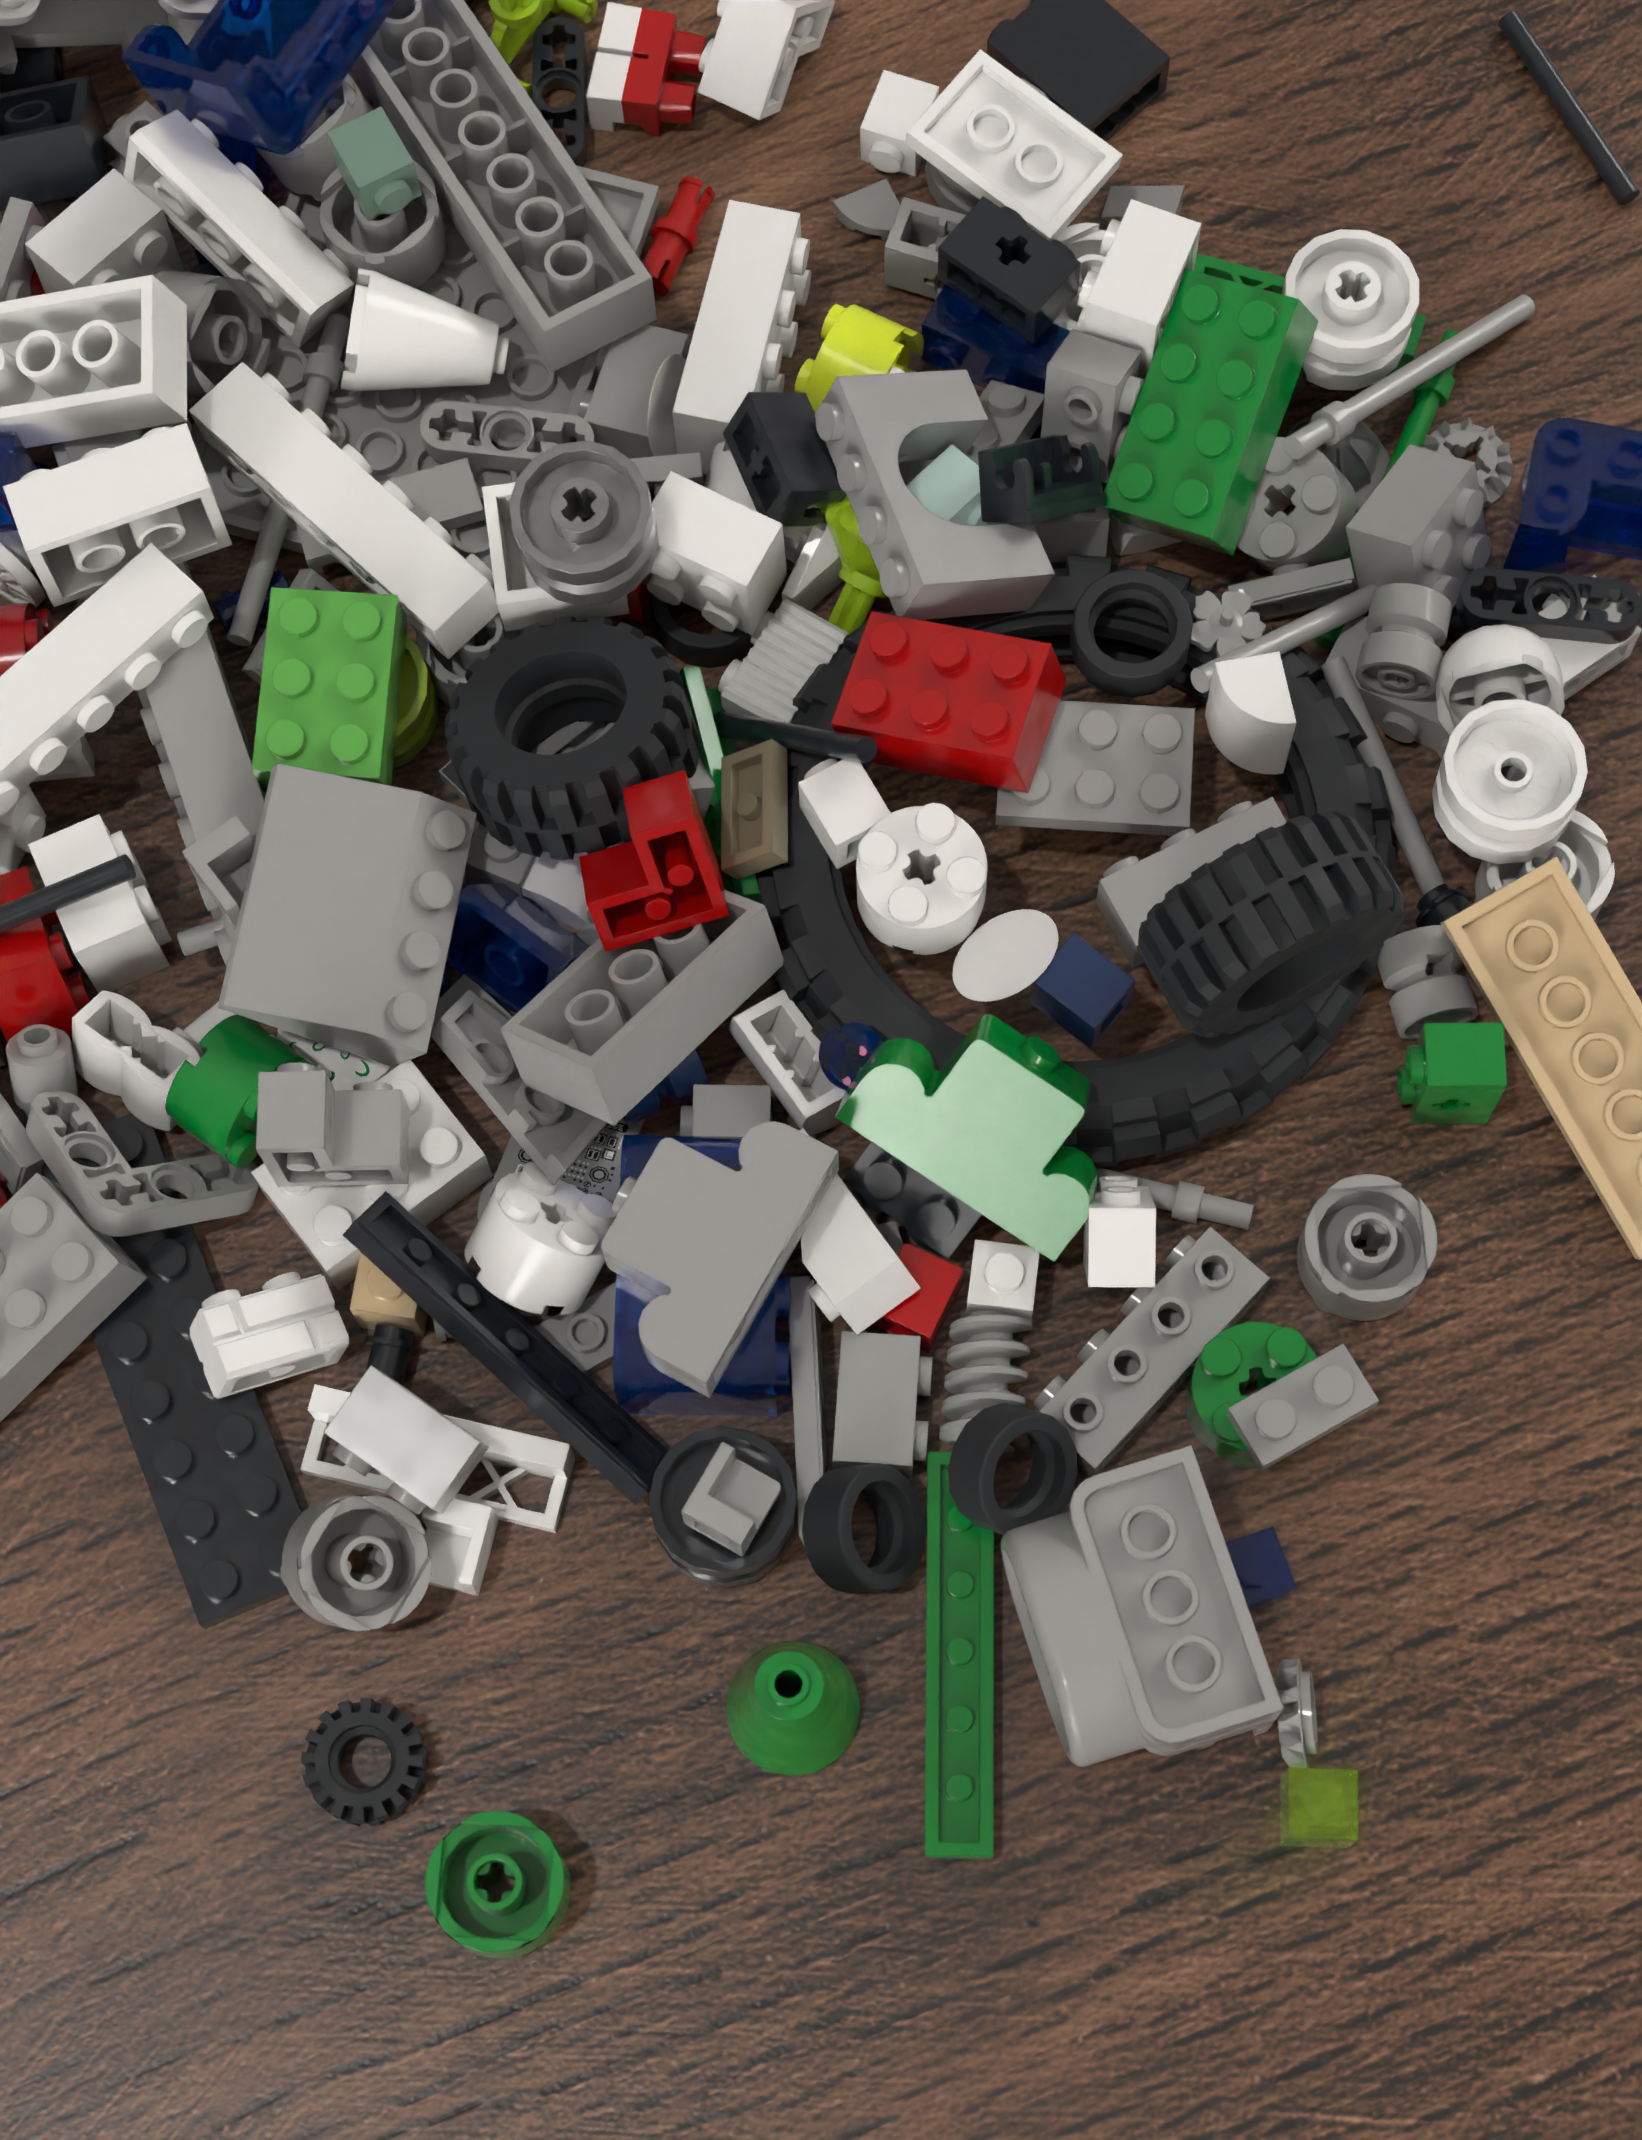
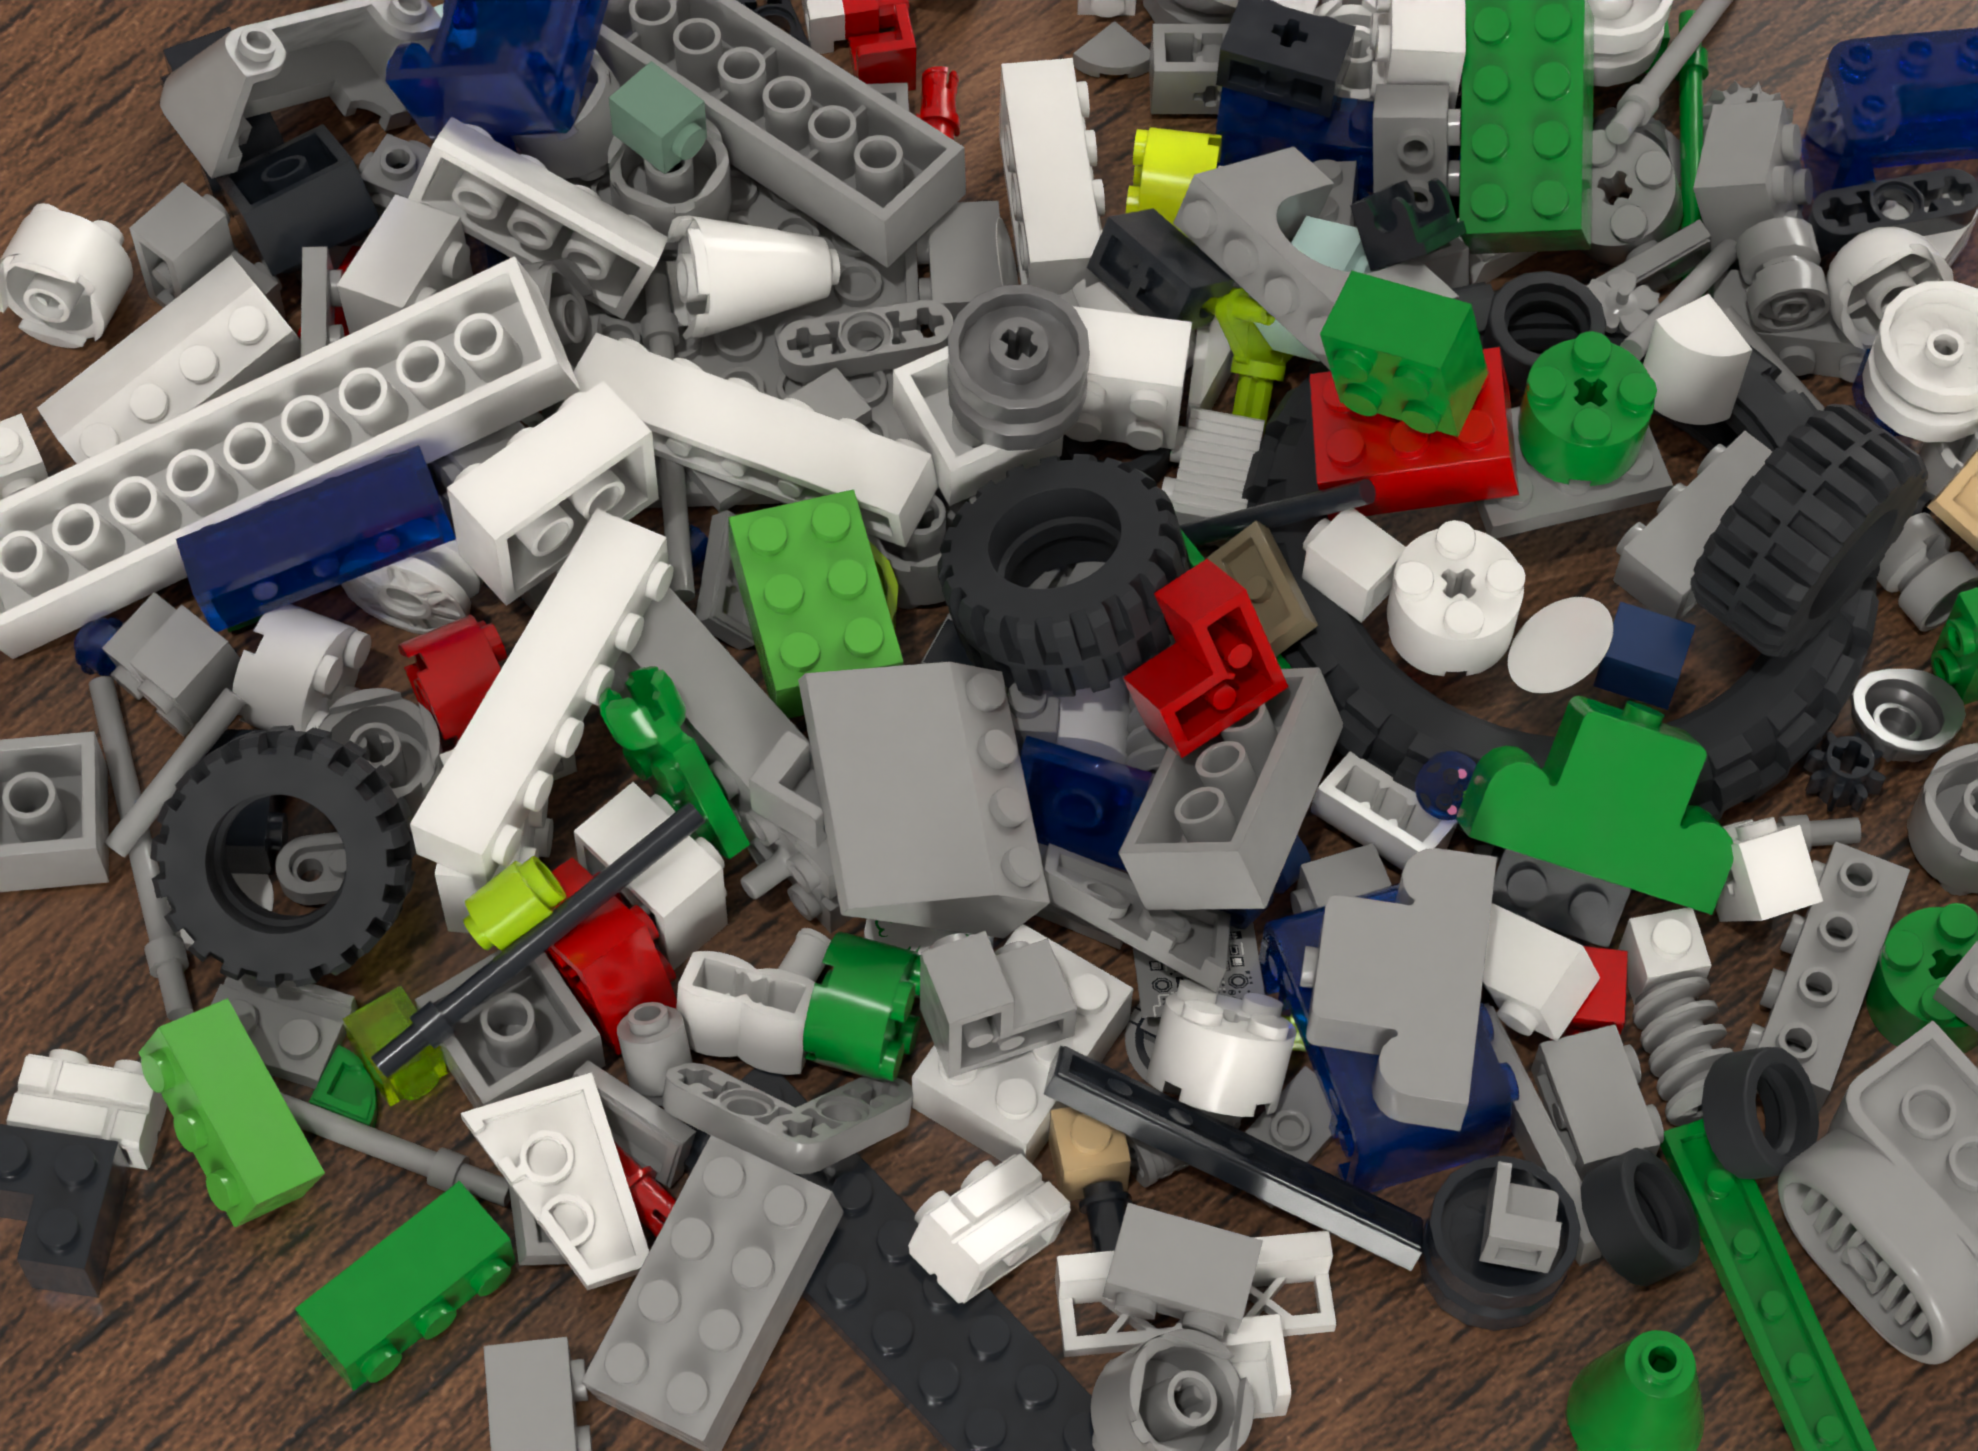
camera: 25 degrees left, 10 degrees down
(130, 767) = (669, 757): none -> green plate
(652, 152) = (886, 55): none -> red panel
(936, 629) = (1404, 354): none -> green brick
(1090, 722) = (1585, 410): none -> green brick
(1254, 1141) = (1841, 788): none -> black gear
(1343, 1117) = (1906, 713): none -> flat silver piece

